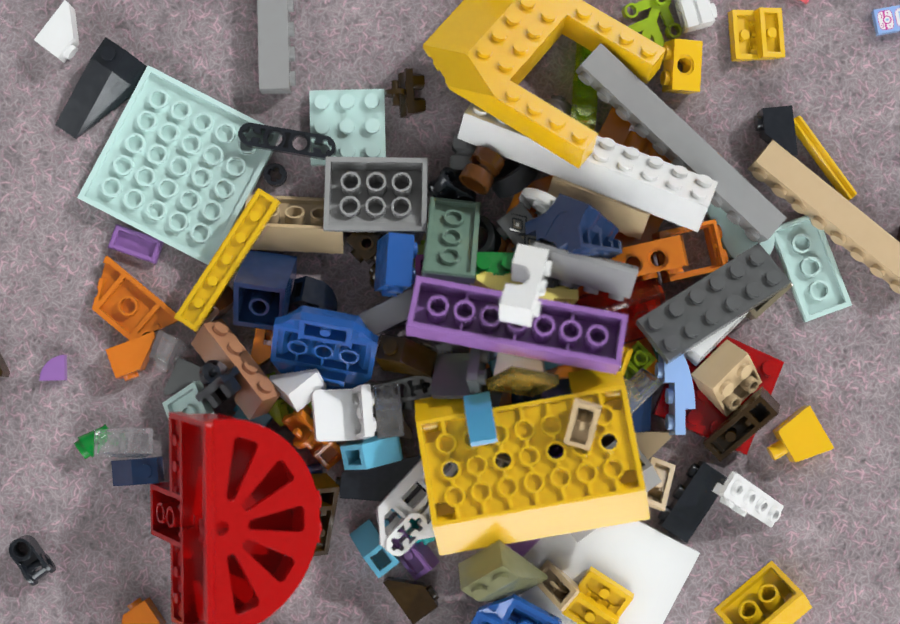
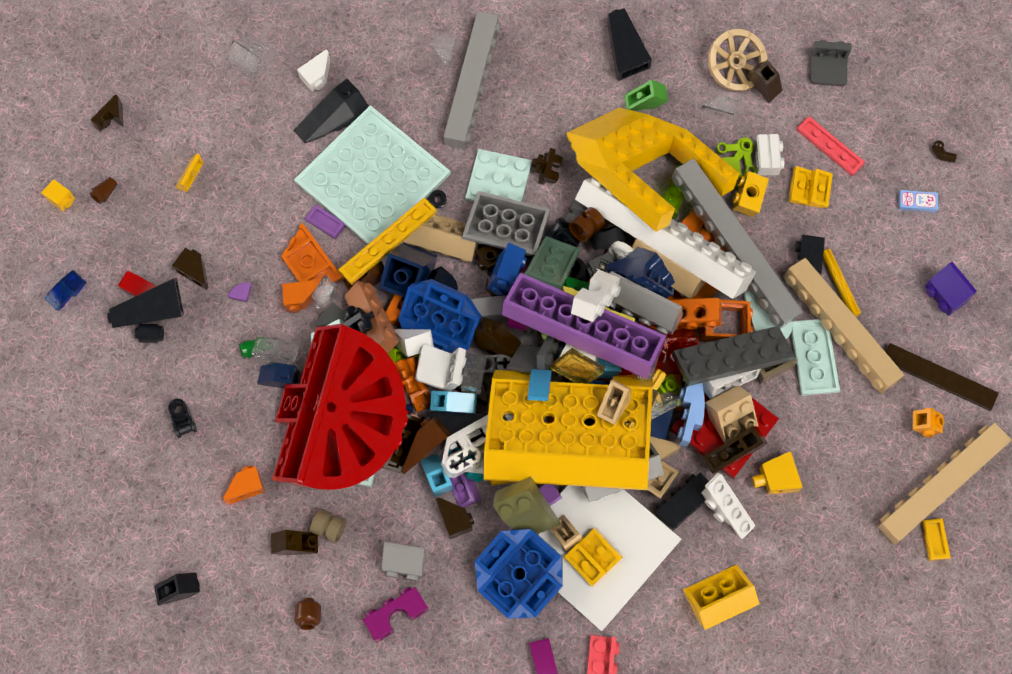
camera: 20 degrees right, 15 degrees down
(288, 138) = (454, 174): black beam -> none
(354, 510) = (426, 439): none -> reddish brown slope

